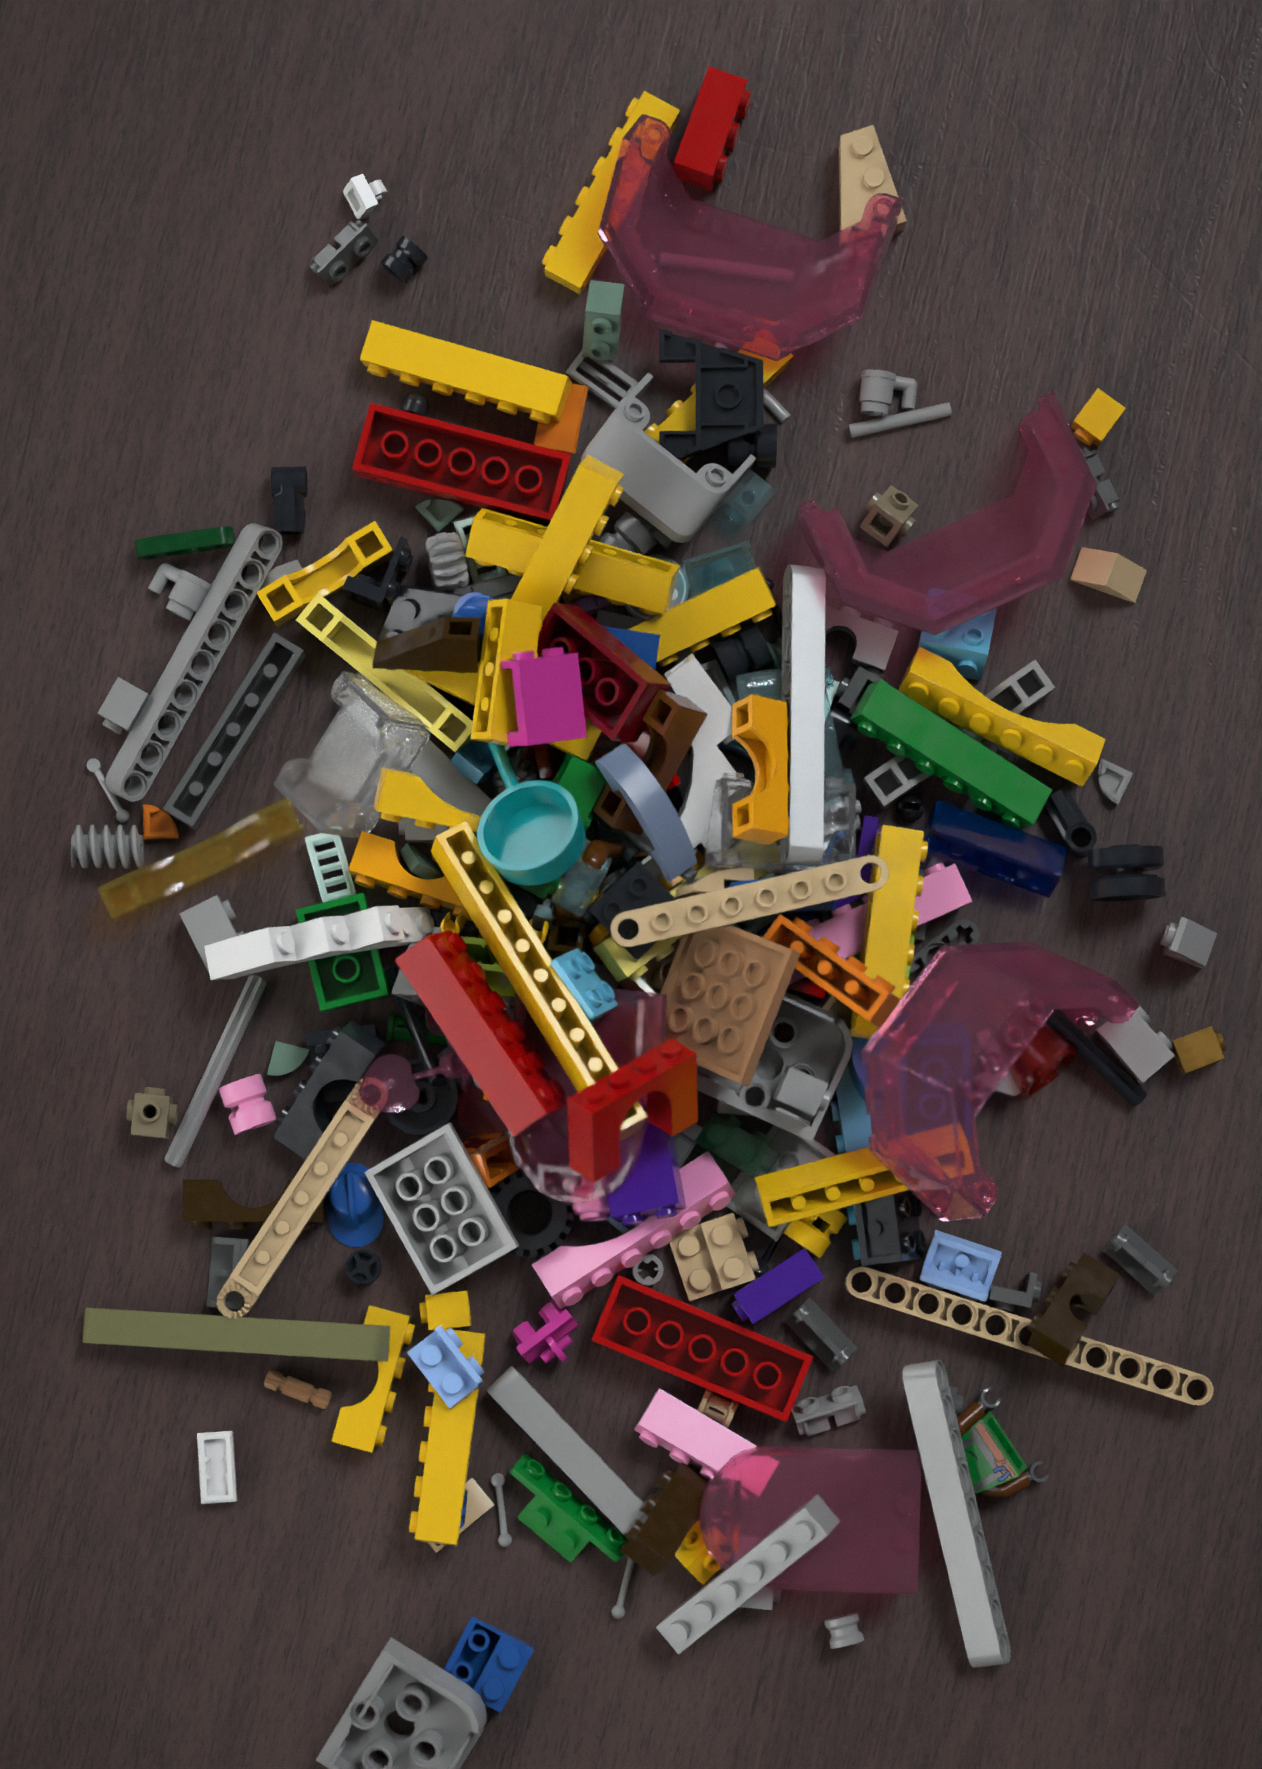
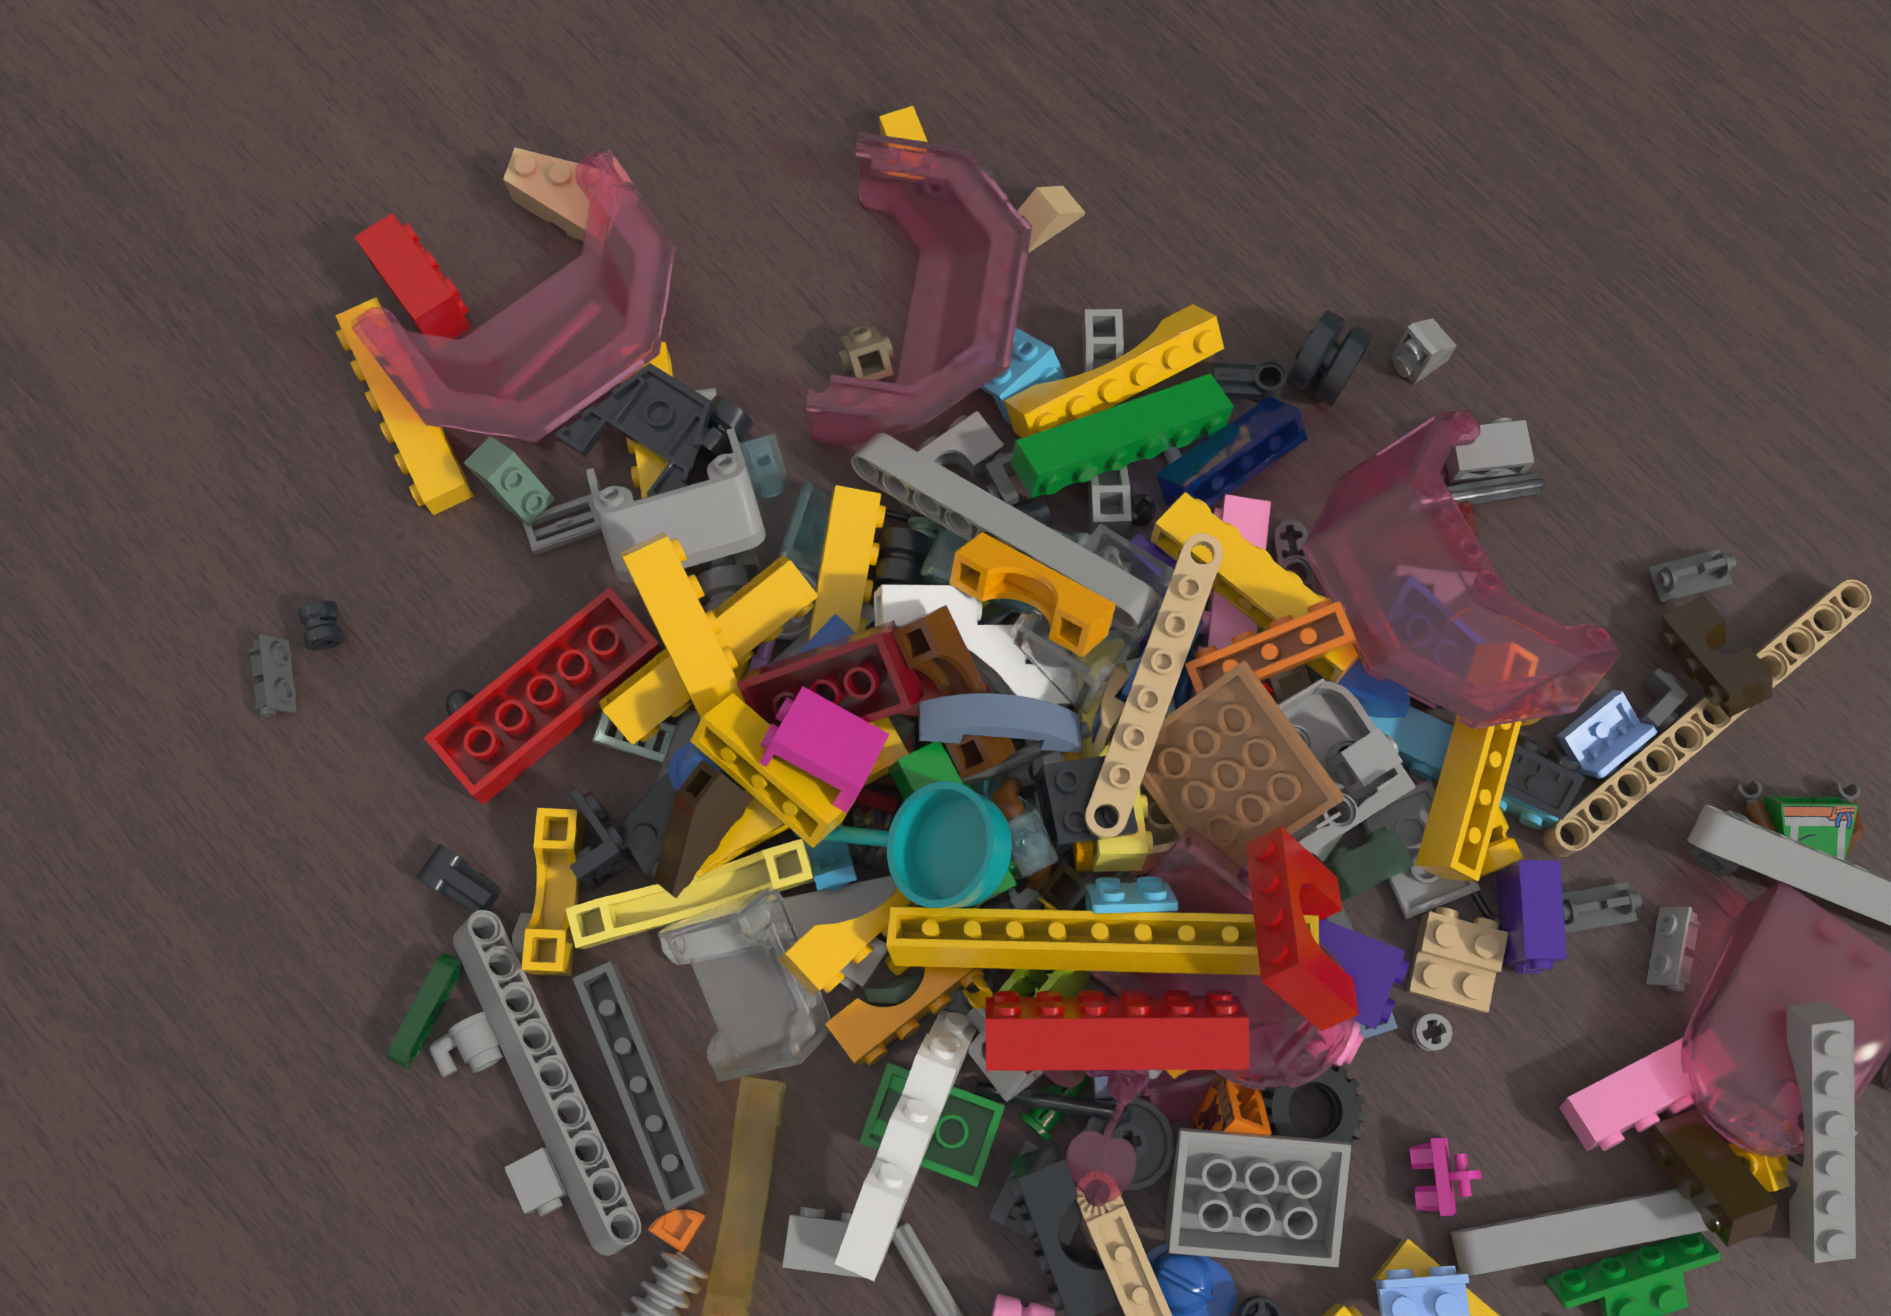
camera: 60 degrees left, 10 degrees down
(94, 766) = (576, 1253): light grey hinge -> none
(286, 1059) = (997, 1255): sand green tile -> none
(320, 839) = (806, 1067): light aqua slope -> none
(363, 196) = (234, 623): white tile -> none
(439, 512) = (575, 750): sand green tile -> none
(446, 1310) = (1359, 1262): yellow brick -> none
(447, 561) = (625, 769): light grey gear -> none
(466, 372) = (462, 636): yellow brick -> none
(564, 434) = (566, 577): orange slope -> none
(577, 1270) = (1395, 1100): bright pink arch -> none
(618, 1610) = (1762, 1289): light grey hinge -> none
(702, 1348) = (1548, 1029): red brick -> none
(717, 1408) = (1612, 1053): tan bush -> none
(878, 388) = (748, 298): light grey piece -> none
(900, 420) = (787, 299): light grey bar -> none
(1112, 780) = (1235, 327): light grey tile -> none
(1198, 1049) = (1528, 400): pearl gold brick -> none

